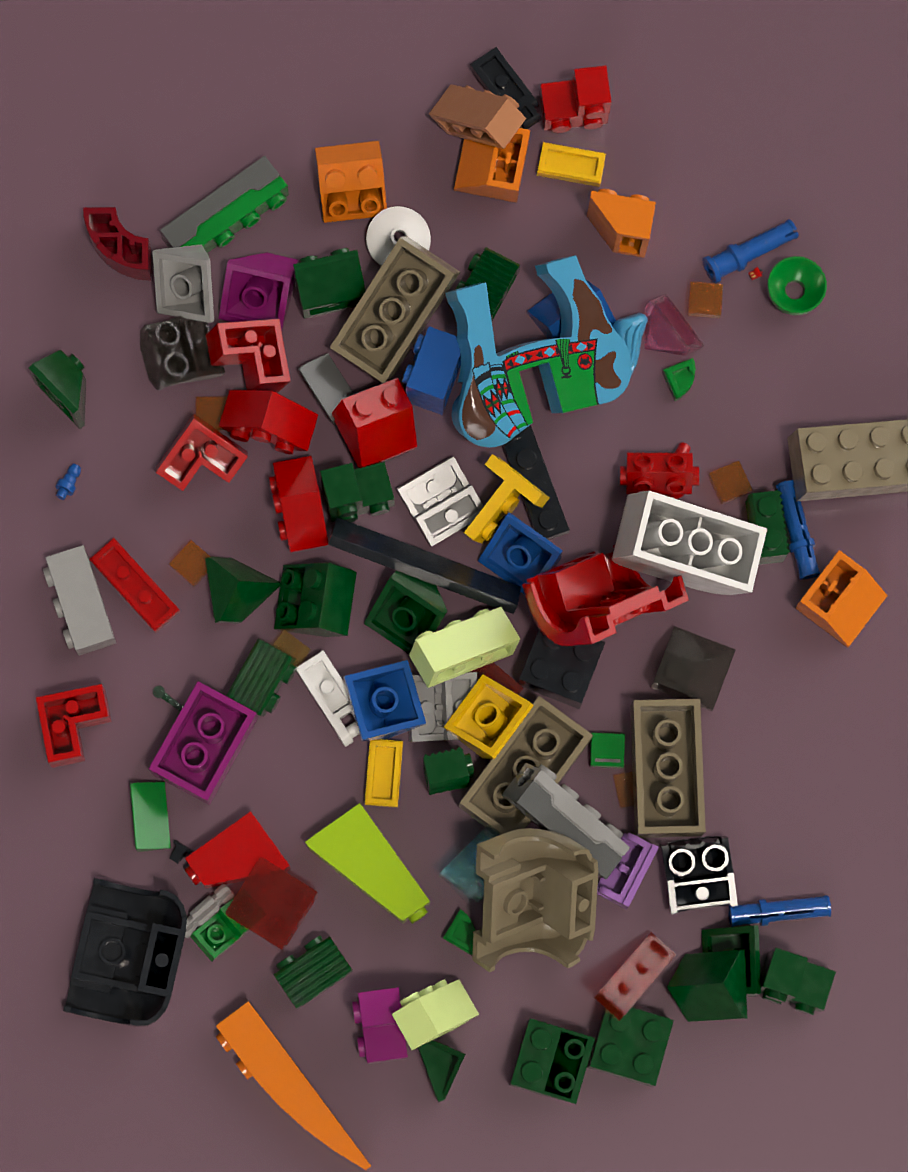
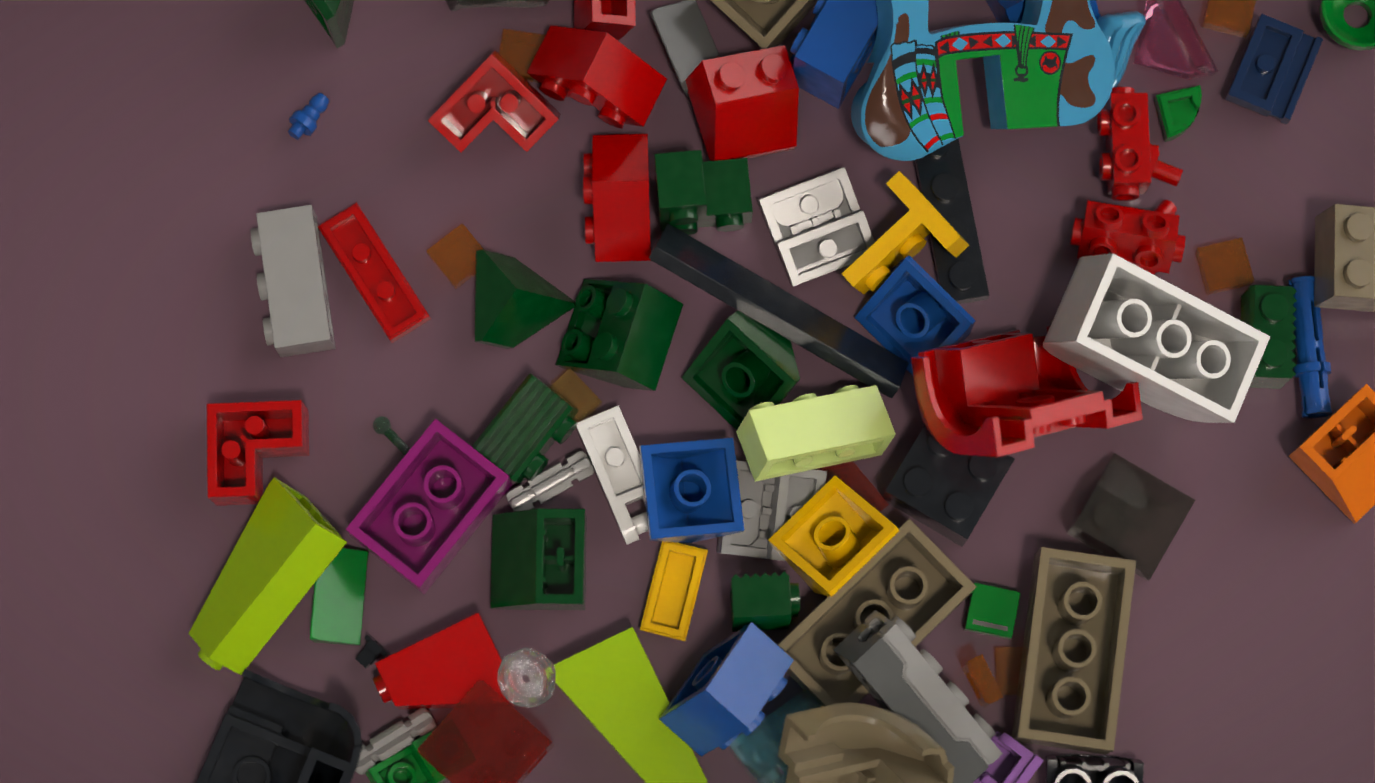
camera: 15 degrees right, 0 degrees up
(96, 811) = (265, 577): none -> lime slope
(284, 712) = (551, 482): none -> light grey axle
(286, 767) = (539, 560): none -> dark green slope
(299, 843) = (538, 669): none -> clear plate
(433, 835) = (728, 690): none -> blue brick
(608, 800) = (982, 681): none -> clear orange tile
(651, 417) = (1129, 156): none -> red brick
(742, 337) = (1274, 69): none -> dark blue plate

